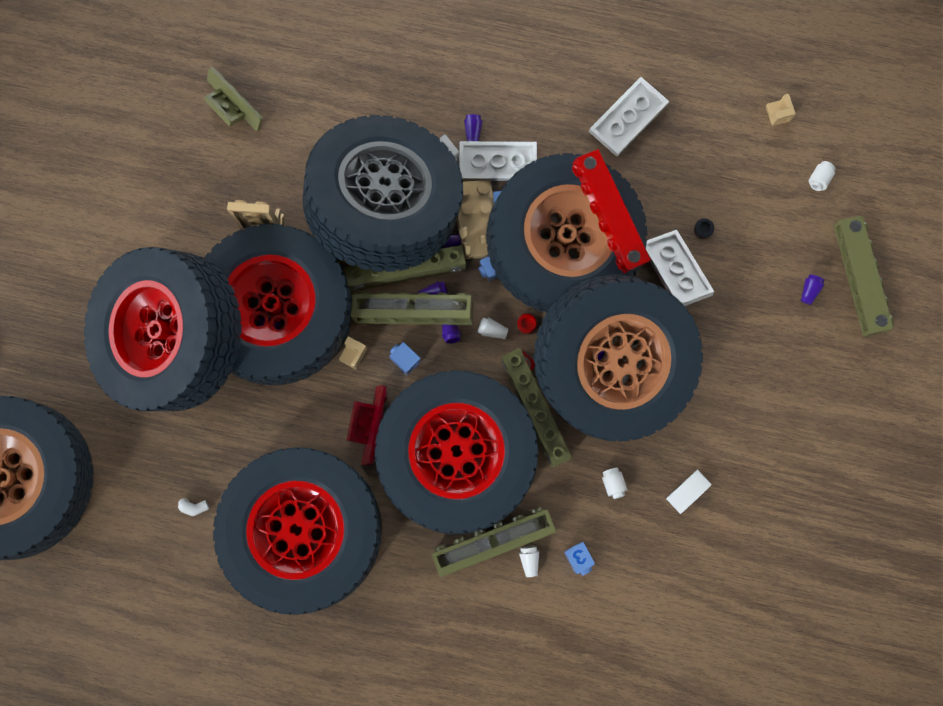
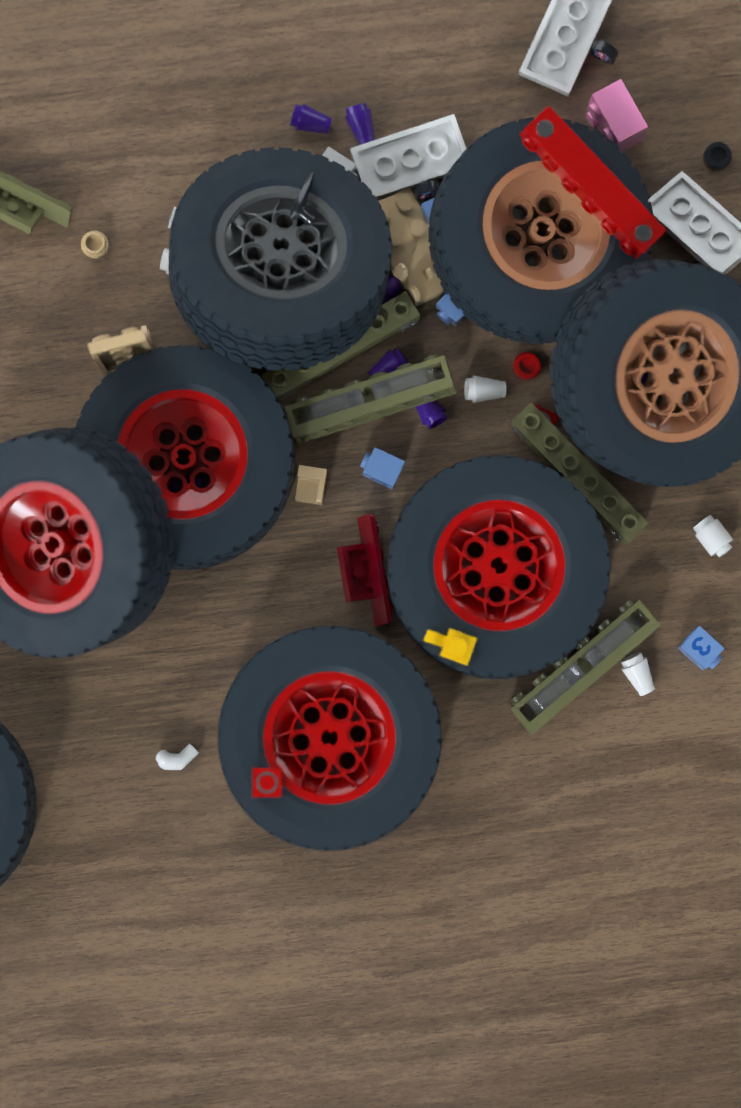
camera: 20 degrees left, 5 degrees up
(239, 546) = (267, 782): none -> red tile
(270, 147) = (94, 244): none -> tan plate
(404, 496) = (454, 646): none -> yellow plate
(405, 163) = (302, 199): none -> black bar
(440, 115) = (310, 120): none -> dark purple cone
(498, 184) = (426, 190): none -> black tile
(644, 177) = (616, 116): none -> bright pink piece
(651, 135) = (604, 51): none -> black tile

